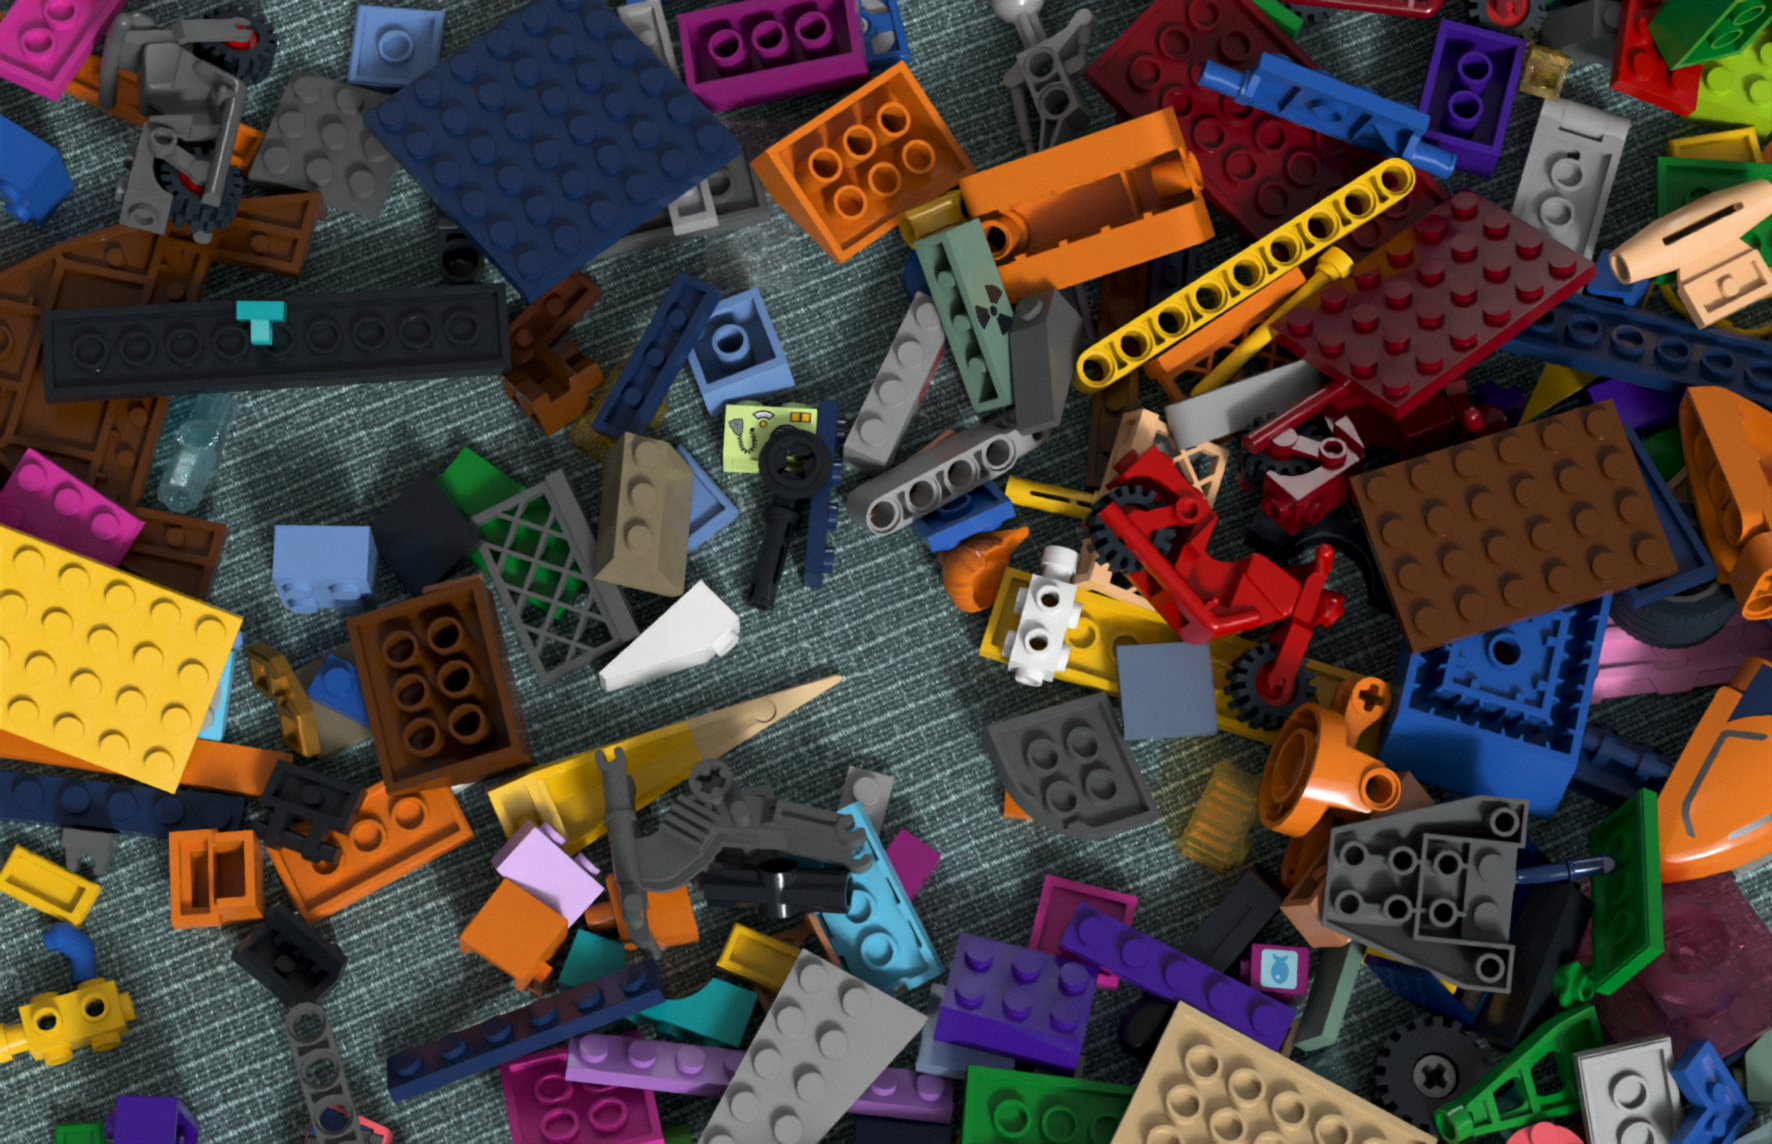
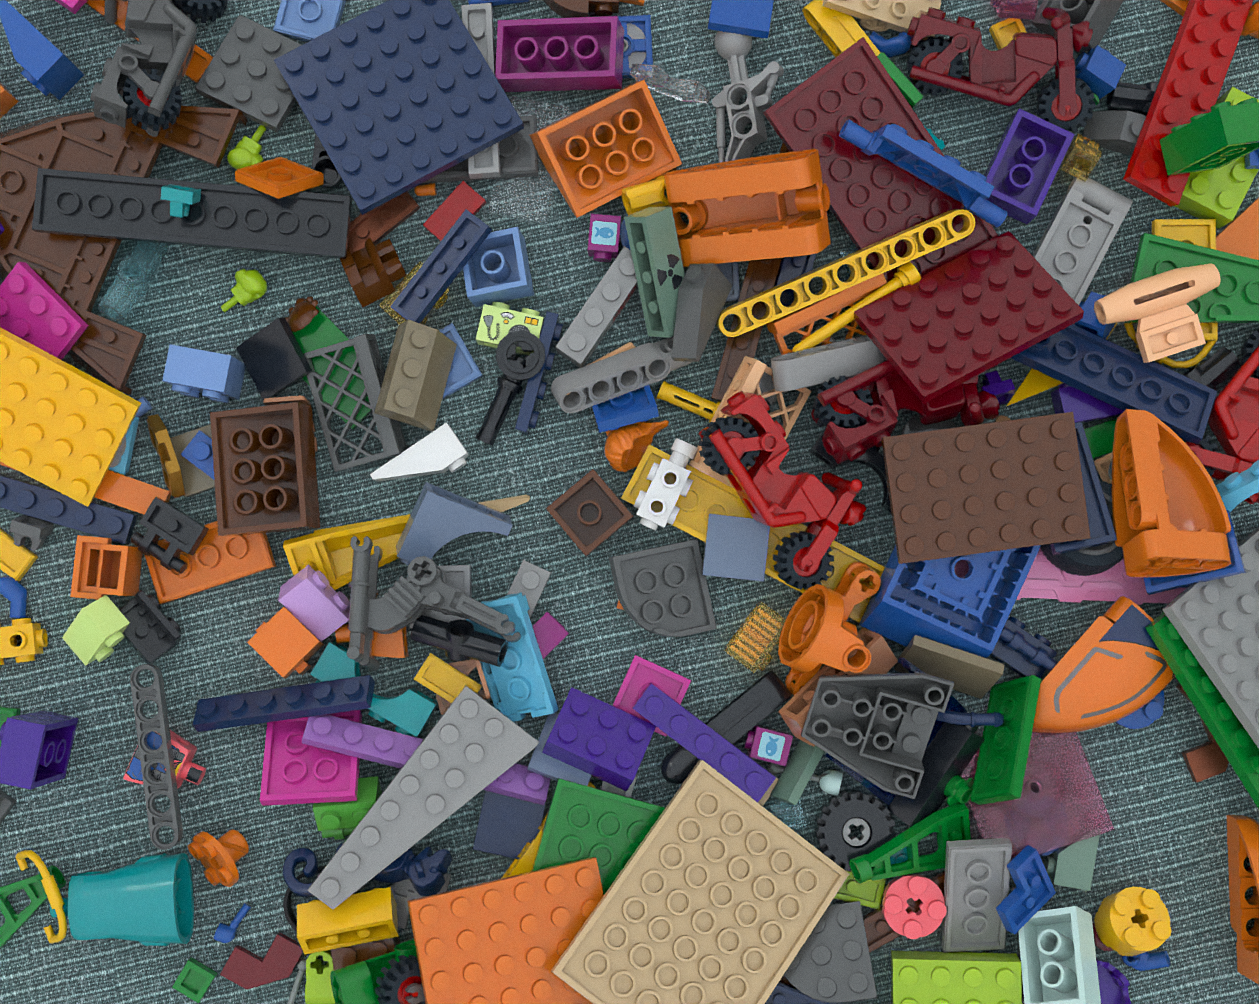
camera: 10 degrees right, 15 degrees up
(217, 971) = (96, 630): none -> yellowish green brick
(334, 257) = (247, 151): none -> lime piece
(368, 443) = (248, 289): none -> lime piece
(395, 274) = (279, 177): none -> orange tile
(456, 463) = (302, 313): none -> reddish brown piece
(607, 267) = (426, 190): none -> orange piece
(651, 288) = (452, 208): none -> red tile
(715, 719) = (443, 517): none -> sand blue arch
(883, 288) = (604, 237): none -> magenta brick
(938, 676) = (589, 512): none -> reddish brown brick
(951, 72) = (661, 82): none -> clear tile
(1377, 1014) = (829, 780): none -> light aqua hinge
(1557, 804) = (970, 672): none -> dark tan tile

